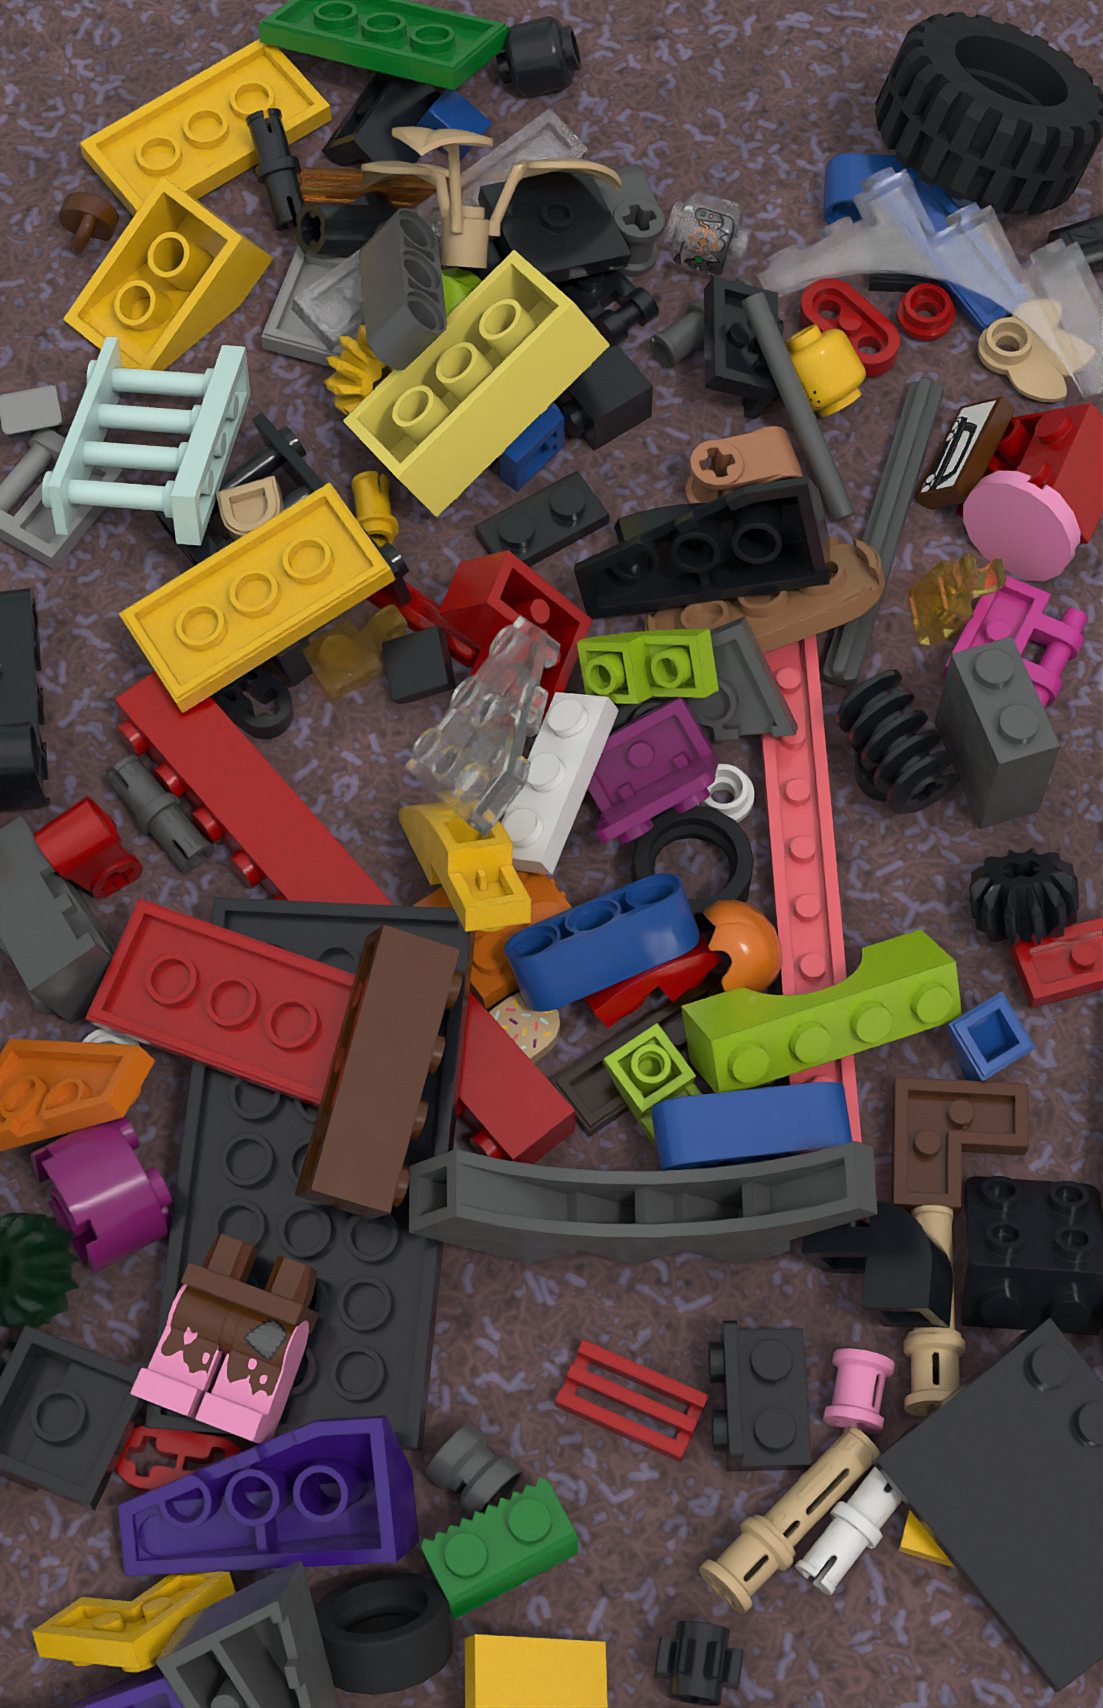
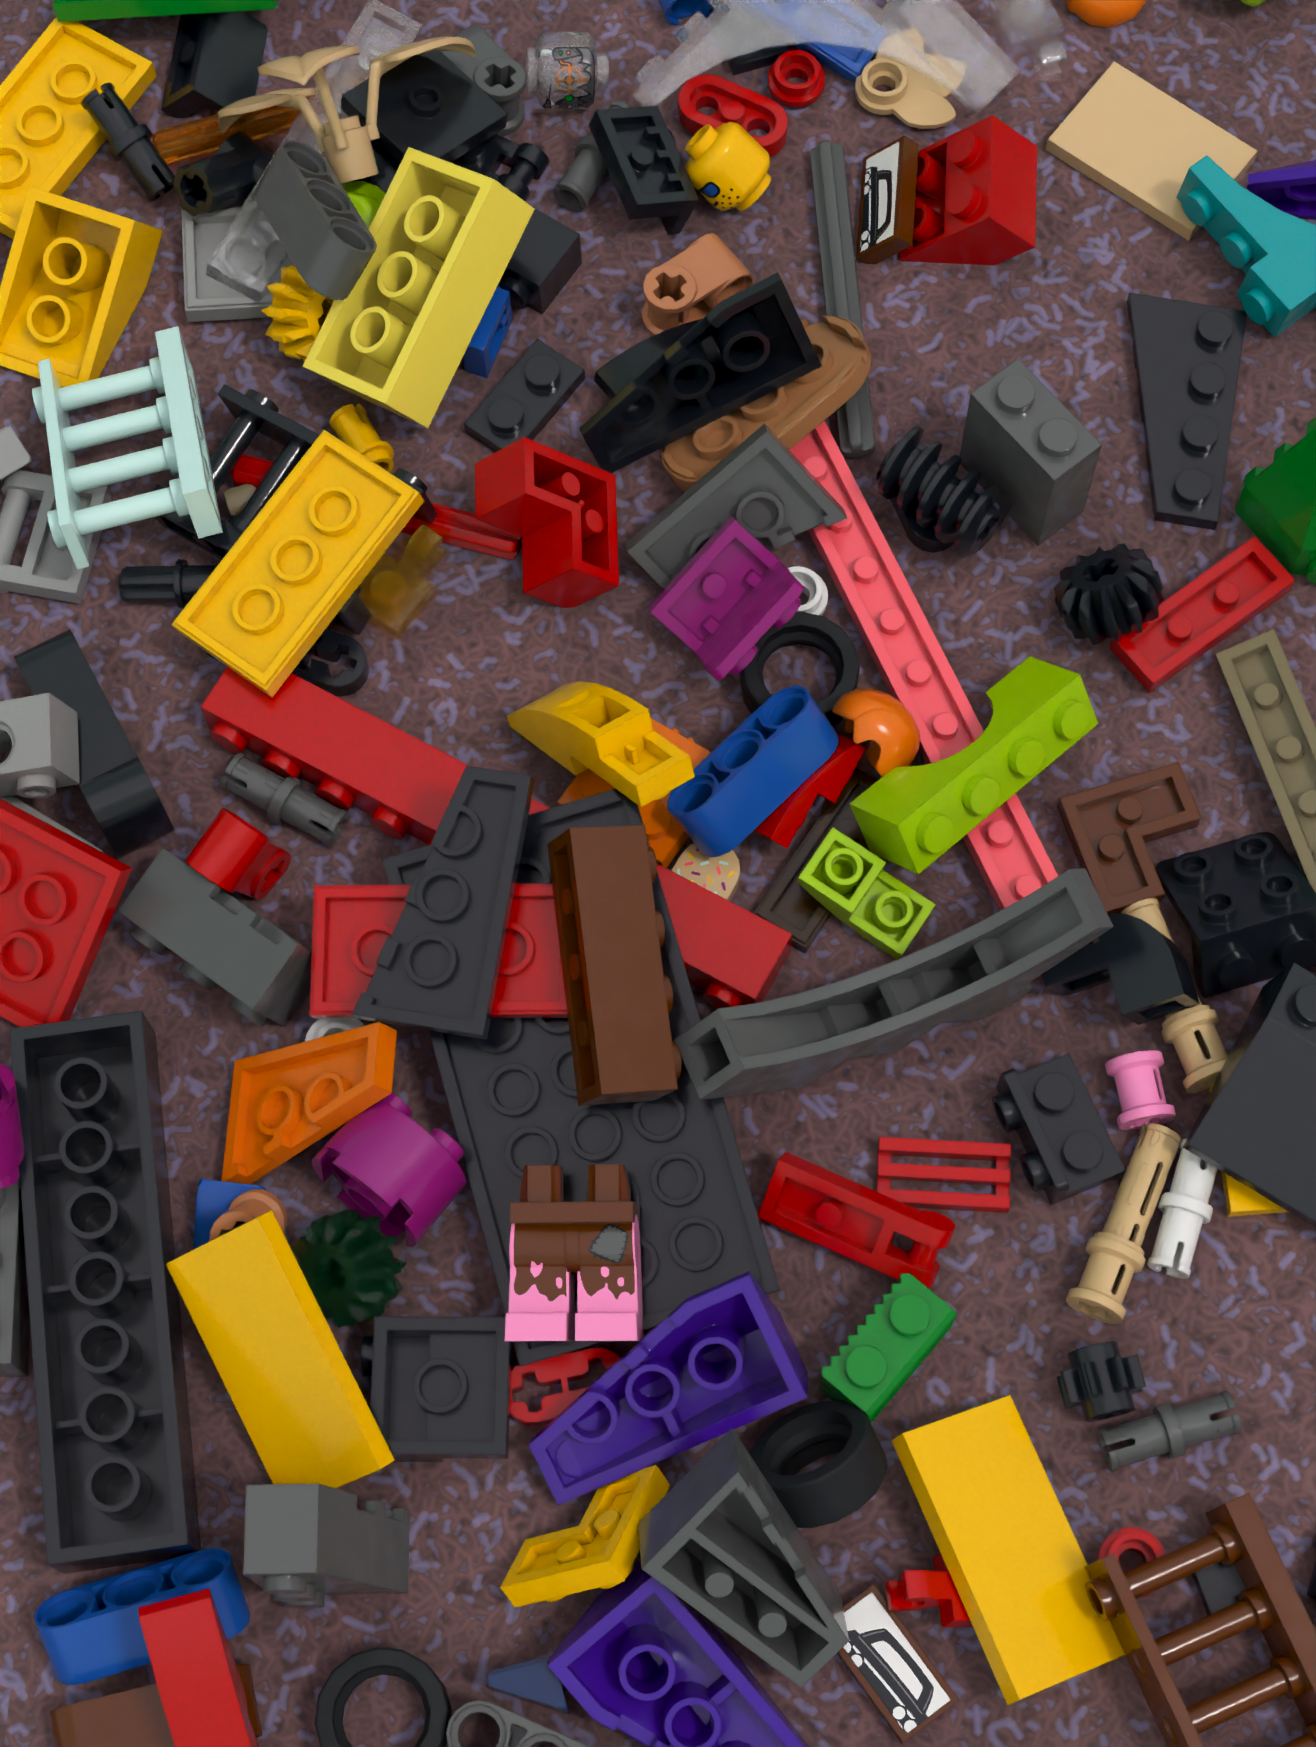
camera: 20 degrees left, 5 degrees up
(131, 574) = (163, 583): none -> black axle
(242, 988) = (452, 934): none -> black wing
(249, 505) = (252, 480): tan tile -> none
(419, 665) = (468, 574): black tile -> none
(454, 112) = (276, 37): blue slope -> none
(473, 1470) = (833, 1291): dark grey wheel -> none
(478, 744) = (573, 612): clear plate -> none
(524, 1411) = (854, 1219): none -> red plate
(558, 778) = (648, 631): white plate -> none
(649, 664) = (691, 499): lime slope -> none
(749, 1125) = (957, 891): blue beam -> none
(798, 407) = (718, 204): dark grey bar -> none
(945, 593) = (925, 343): clear yellow plate -> none
(988, 1038) = (1129, 734): blue slope -> none
(1019, 613) = (990, 341): dark pink plate -> none
(1021, 525) = (970, 252): bright pink tile -> none

